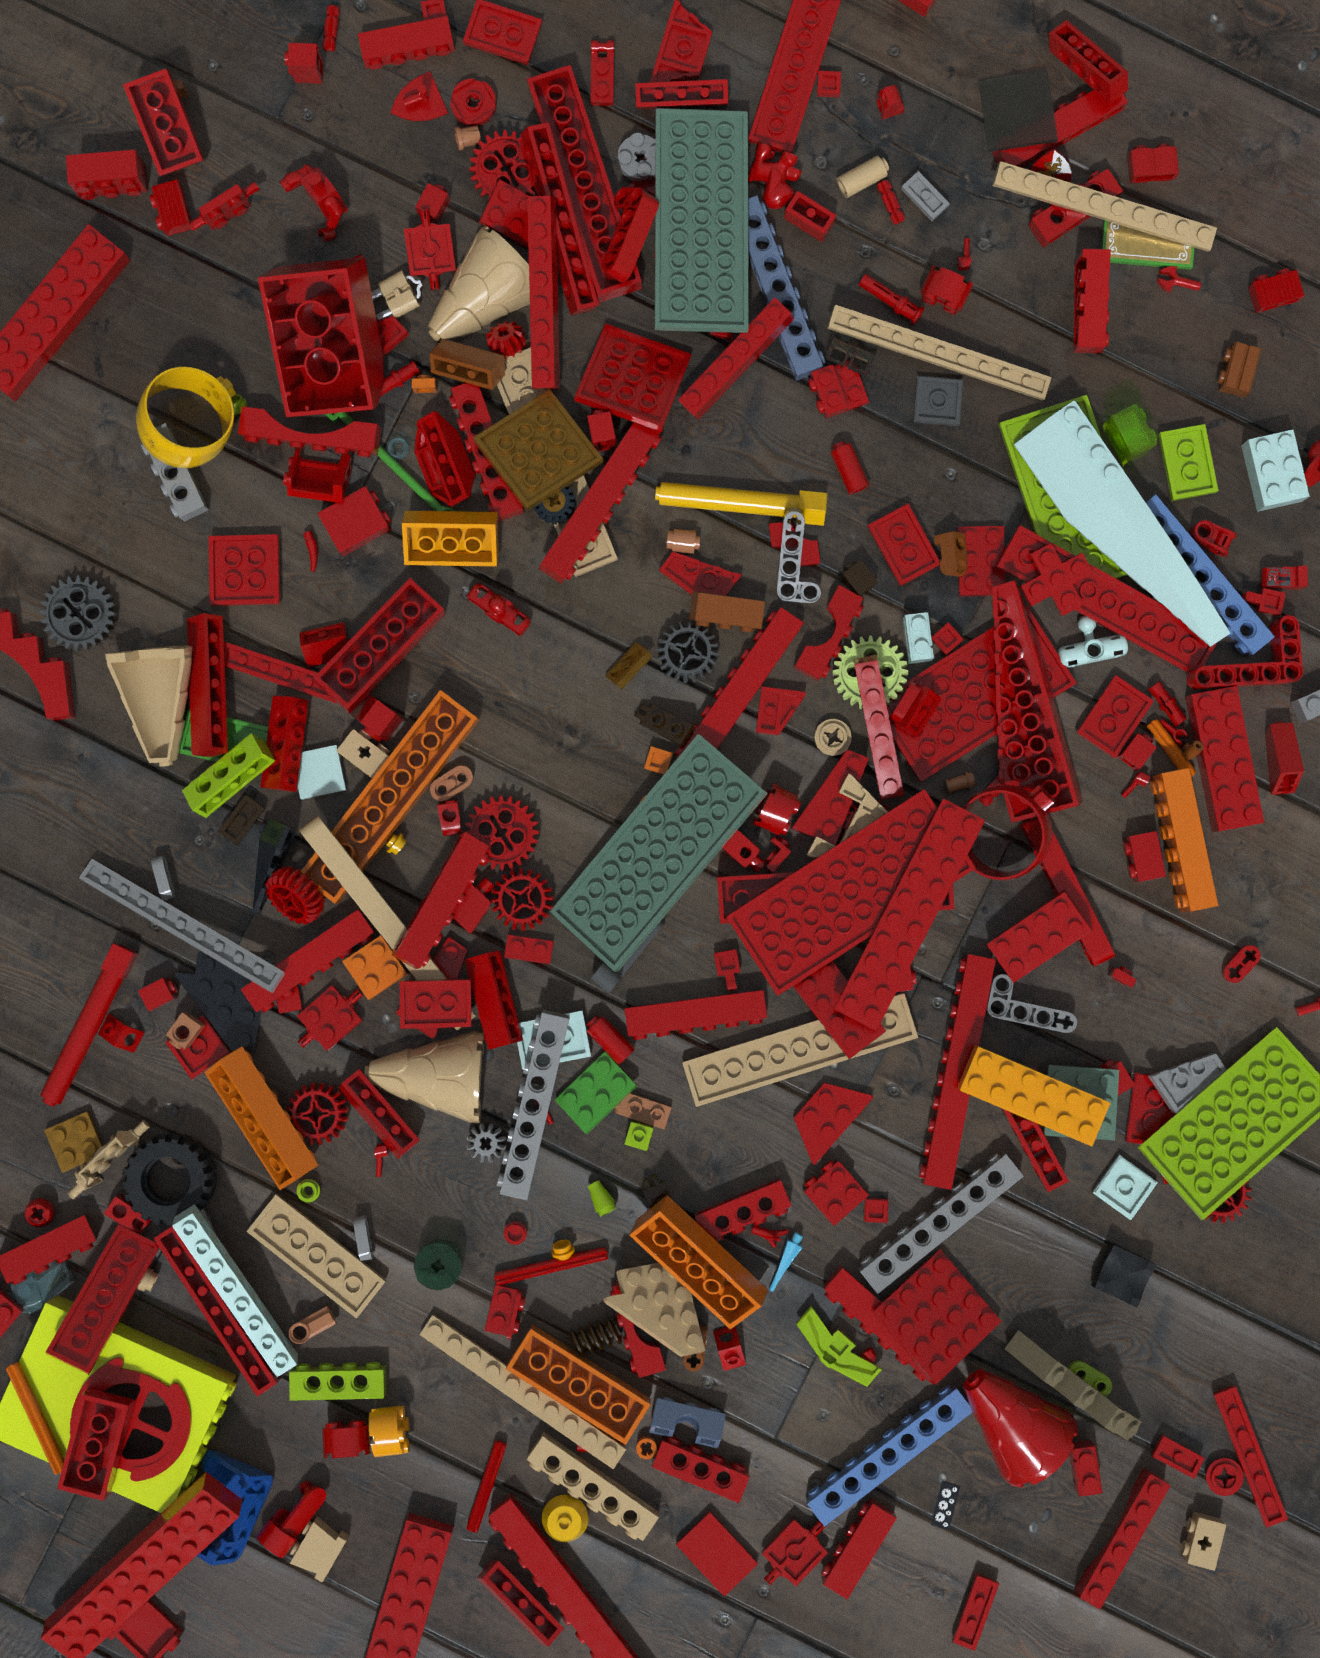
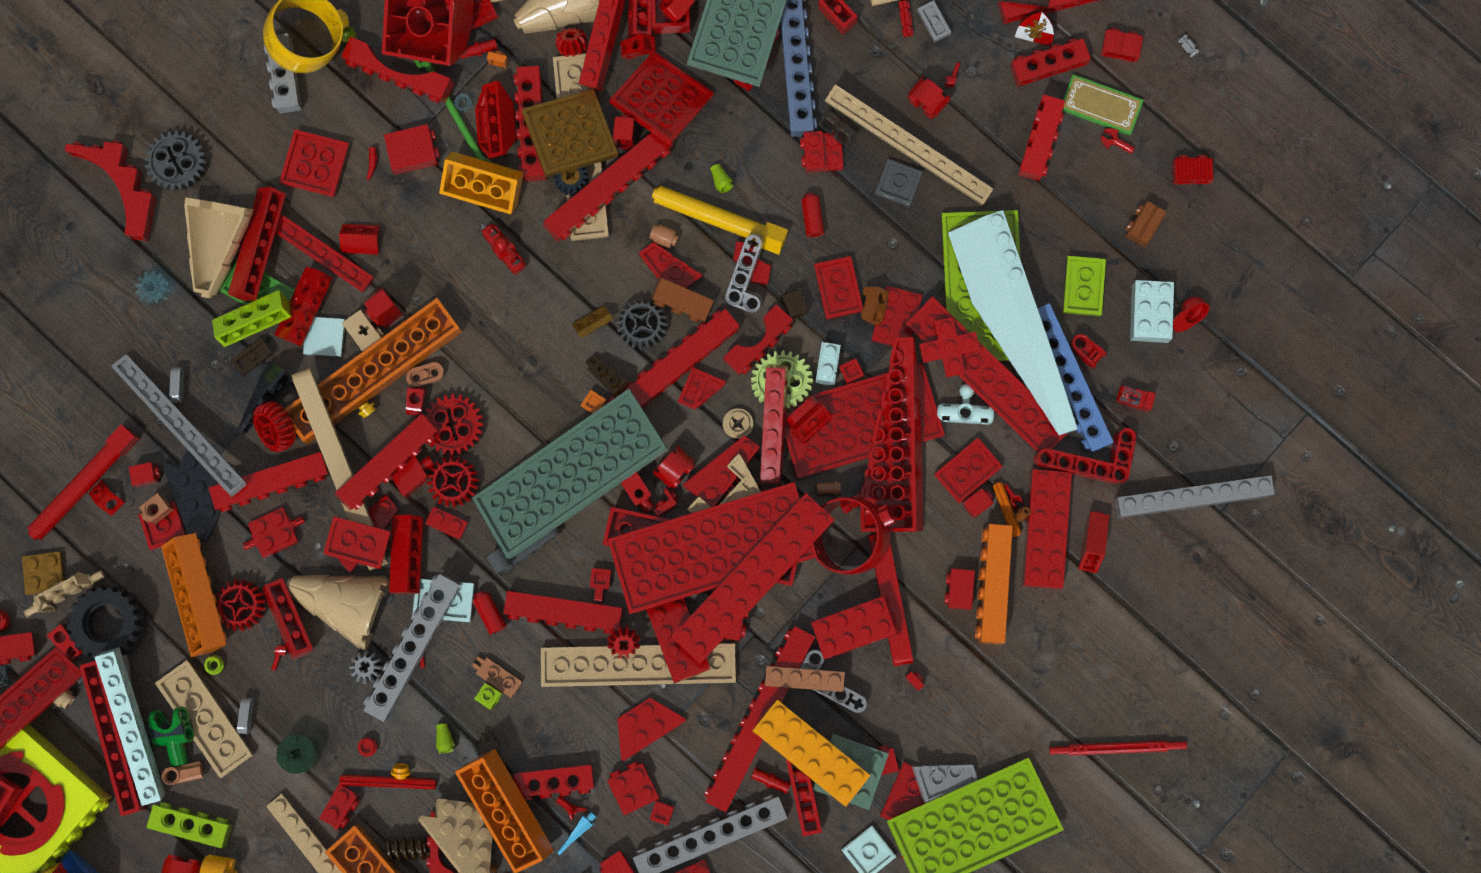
camera: 25 degrees right, 5 degrees down
(92, 778) = (144, 288): none -> clear light blue gear
(286, 1284) = (173, 734): none -> green connector
(290, 1003) = (247, 511): red tile -> none
(317, 478) = (392, 108): red panel -> none
(375, 967) = (319, 502): orange brick -> none
(379, 646) = (400, 250): red brick -> none
(467, 364) = (535, 52): dark orange brick -> none
(586, 323) = (637, 46): none -> red leg
(595, 1093) = (465, 652): bright green plate -> none
(730, 455) = (721, 179): none -> lime cone
(736, 359) = (746, 106): red brick -> none
(775, 1037) = (623, 649): none -> red gear
(900, 304) = (890, 100): red pin -> none
(990, 1137) = (770, 780): none -> red pin
(998, 1011) = (804, 679): none -> nougat plate
(1104, 206) = (1072, 67): tan plate -> none
(1130, 434) = (1042, 250): clear neon green brick -> none
(1139, 778) = (975, 526): red hand -> none
(1167, 703) = (1013, 472): red pin -> none
(1230, 143) = (1188, 45): none -> light grey piece
(1244, 967) = (1017, 702): red beam -> none
(1267, 601) = (1117, 413): red plate -> none

